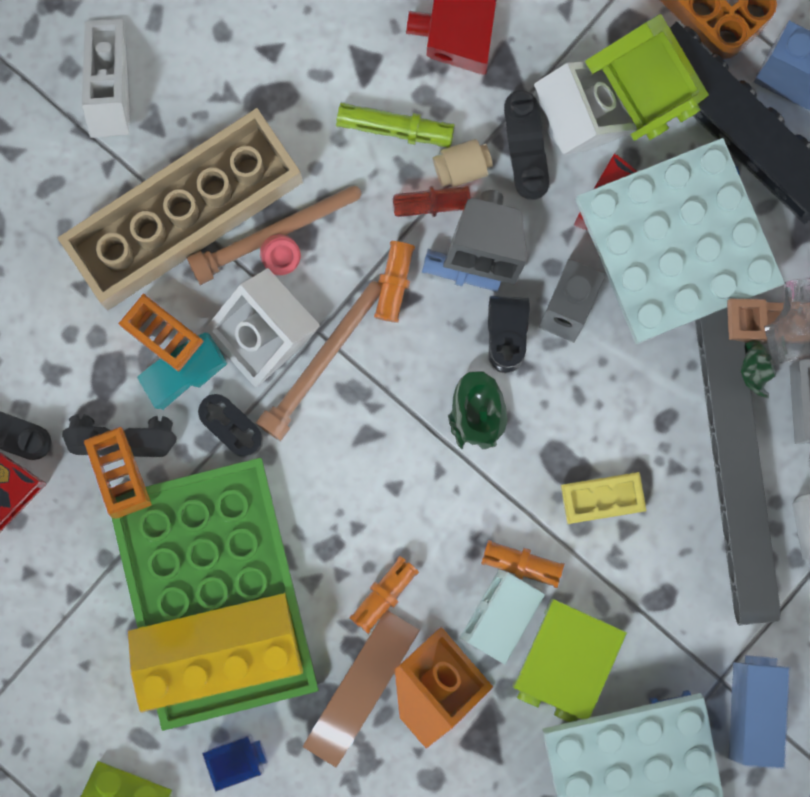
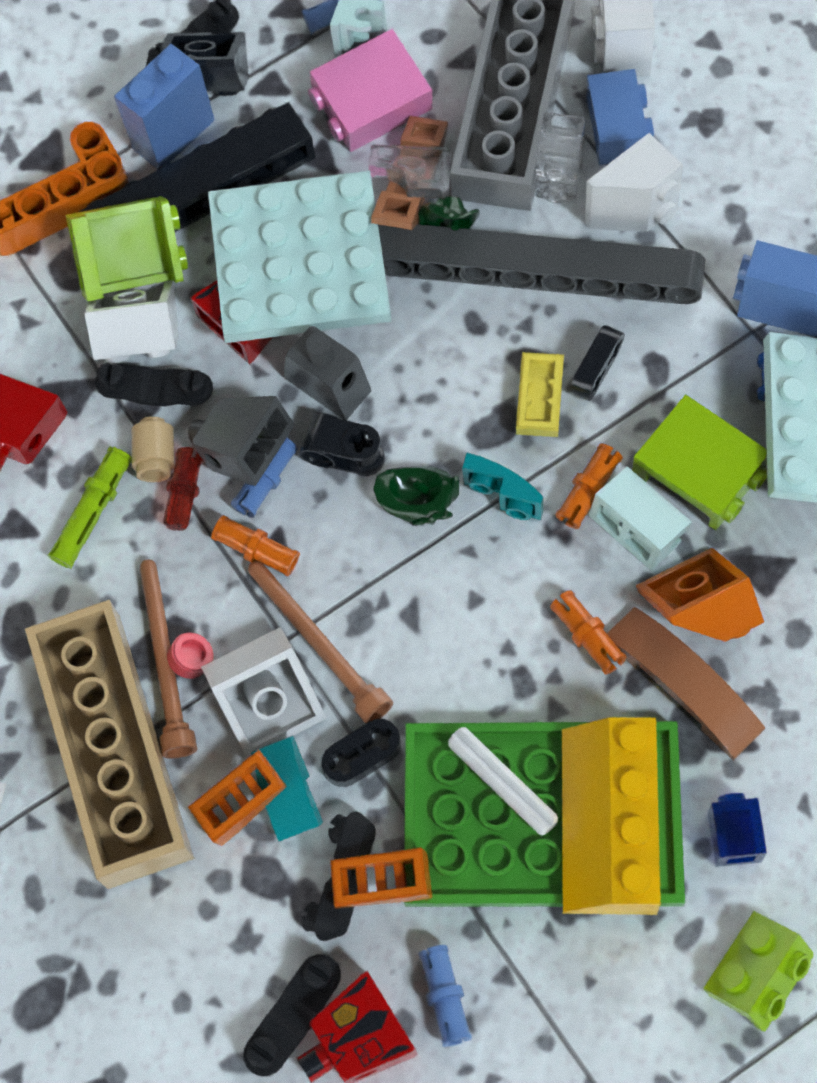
camera: 65 degrees left, 15 degrees down
(41, 549) = (445, 995): none -> medium blue pin
(226, 553) = (503, 781): none -> white axle
(497, 498) = (516, 495): none -> teal slope
(647, 543) = (597, 362): none -> black beam

